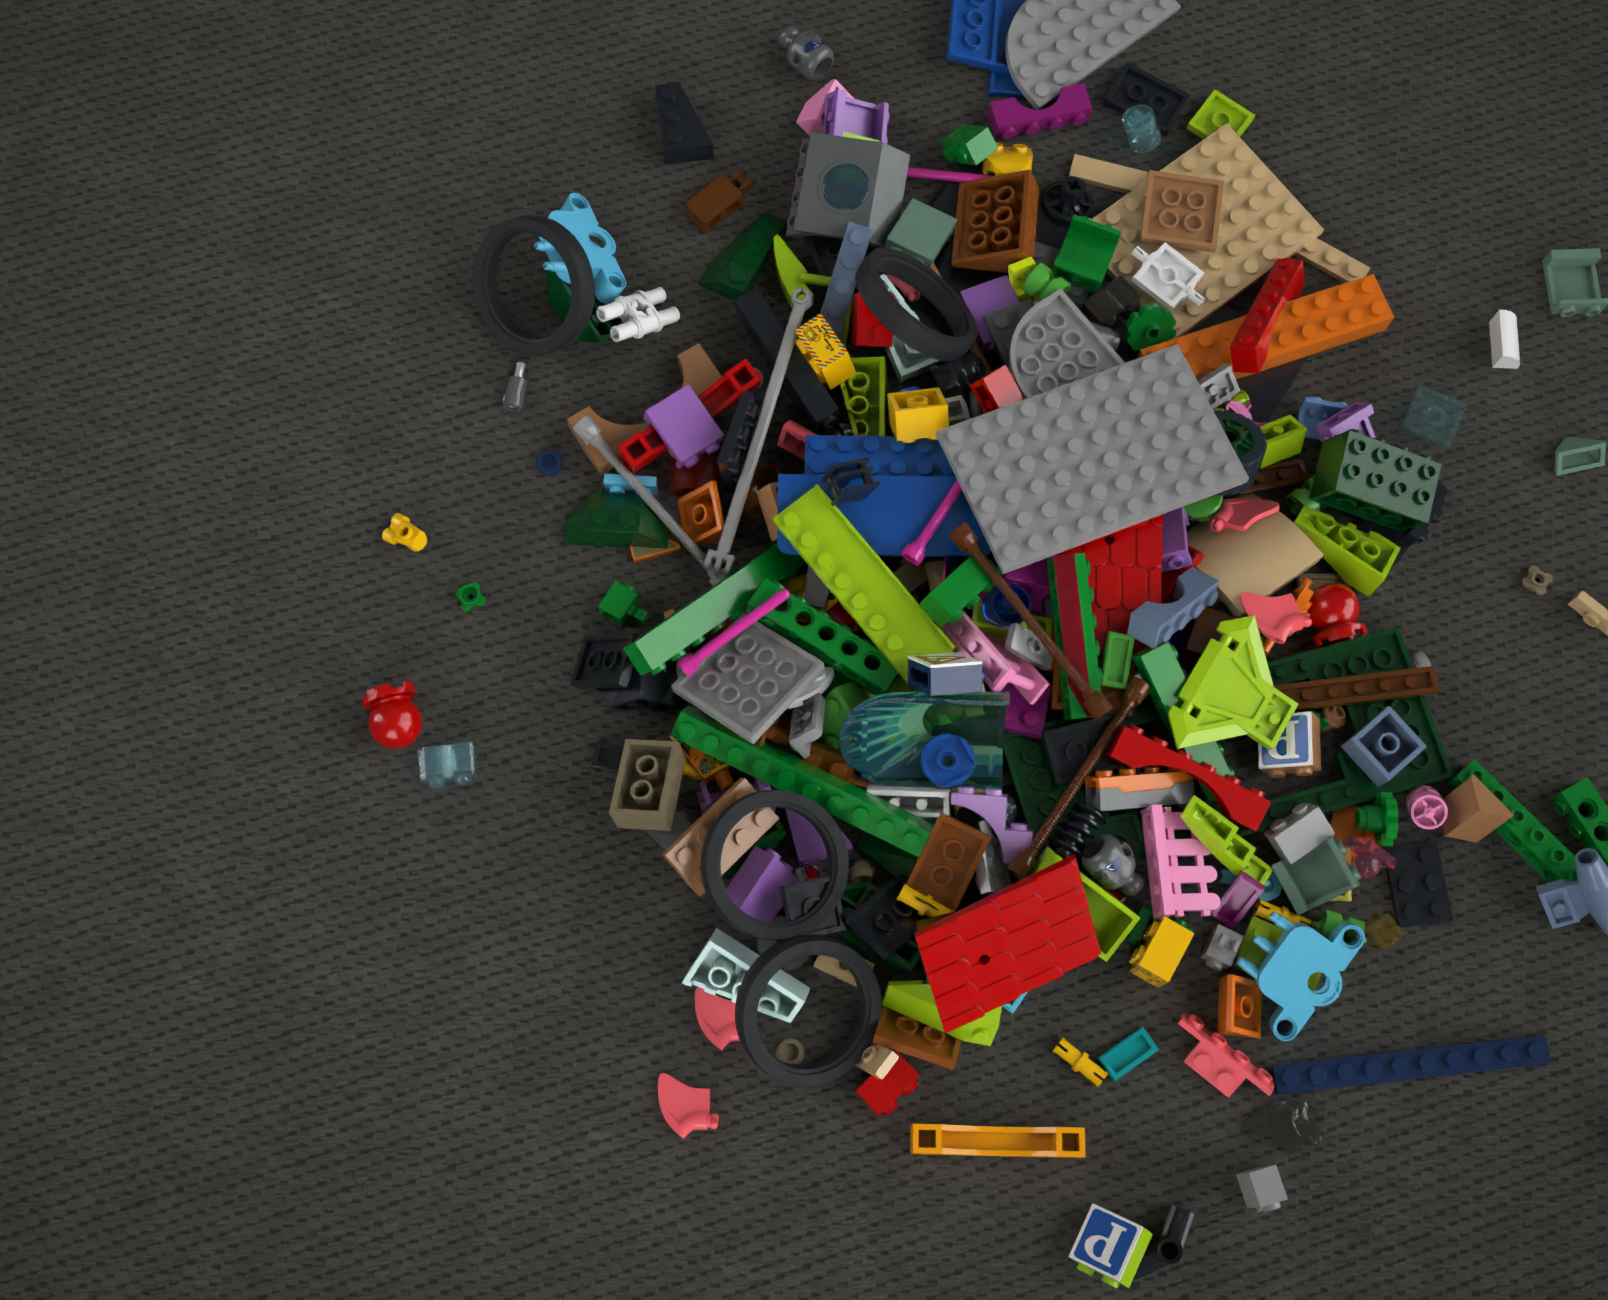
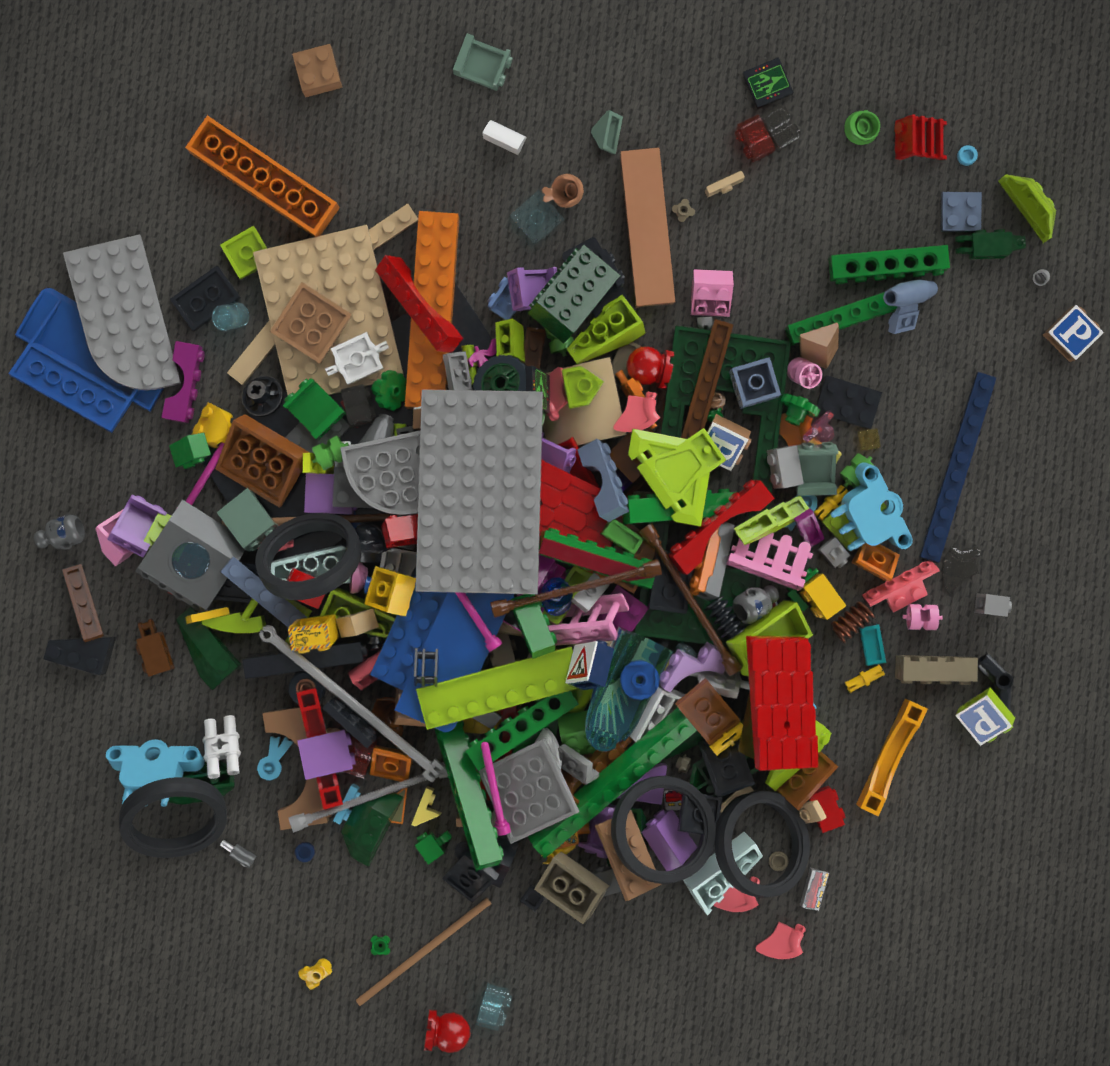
camera: 65 degrees left, 15 degrees up
(484, 652) = (423, 951): none -> medium nougat piece
(636, 382) = (270, 766): none -> medium azure piece
(658, 576) = (423, 812): none -> light yellow slope
(737, 103) = (83, 603): none -> reddish brown plate
(774, 1118) = (814, 889): none -> slope
(779, 226) = (207, 615): none -> yellow tile
(859, 400) = (357, 623): none -> tan slope
(917, 378) = (358, 578): none -> bright pink piece
(1140, 1151) = (936, 668): none -> dark tan wedge
(1147, 1009) = (852, 620): none -> copper piece
(1197, 1100) = (924, 617): none -> bright pink wheel
(1246, 493) = (540, 382): none -> black tile
(1271, 534) = (580, 386): none -> lime plate
(1314, 102) = (262, 177): none -> orange brick
(1459, 654) = (712, 293): none -> bright pink slope
(1464, 112) = (317, 70): none -> medium nougat brick
(1488, 426) = (571, 185): none -> nougat hat
(1494, 545) = (647, 227): none -> nougat tile

